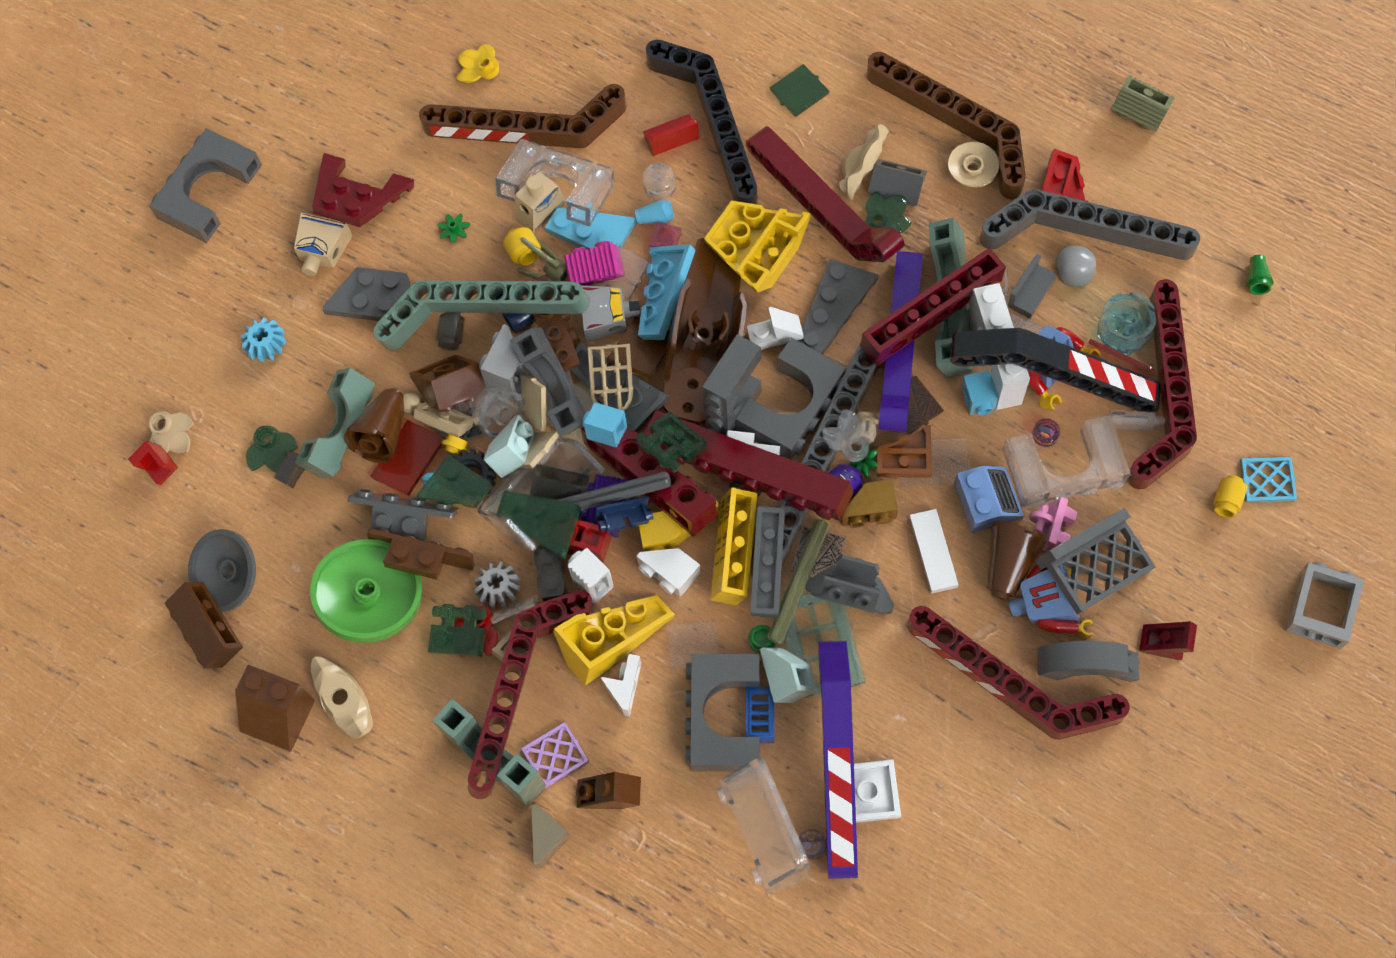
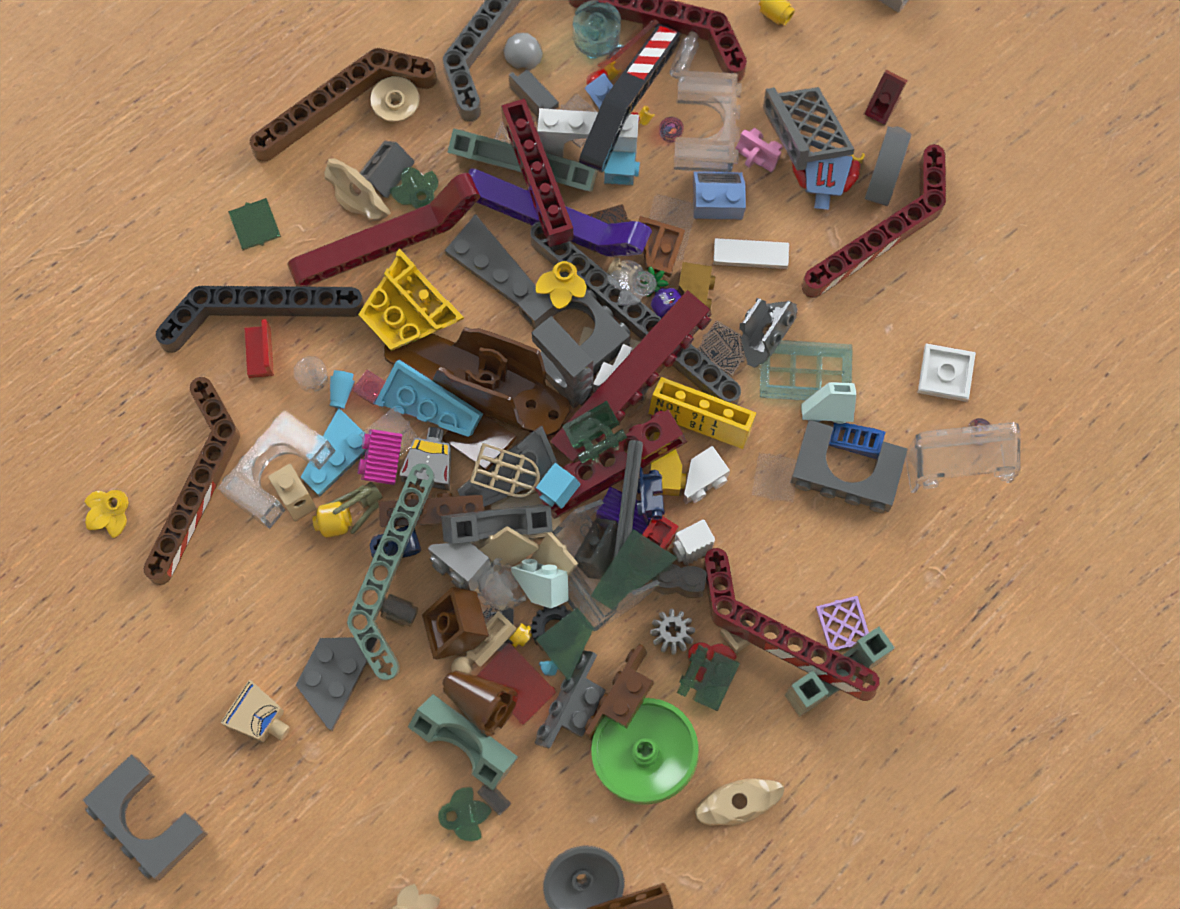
camera: 80 degrees left, 5 degrees up
(263, 340) = (353, 789): medium azure gear -> none
(271, 707) = (737, 865): reddish brown slope -> none
(350, 200) = (220, 674): dark red wing -> none
(453, 227) = (285, 587): green plant -> none
(514, 609) = (705, 618): clear piece -> none
(547, 836) = (918, 647): dark tan slope -> none
(602, 639) = (751, 547): yellow wedge -> none
(609, 791) = (892, 584): reddish brown slope -> none
(624, 691) = (807, 545): white slope -> none
(758, 638) = (789, 417): green plate -> none
(767, 562) = (731, 385): dark grey plate -> none
(776, 330) = (502, 314): white slope -> none
(798, 581) = (749, 369): olive axle -> none
(820, 370) = (561, 288): none -> yellow plate
(838, 760) = (914, 378): dark purple beam -> none
(1011, 557) = (781, 192): reddish brown cone -> none
(1064, 176) = (435, 31): red wing -> none

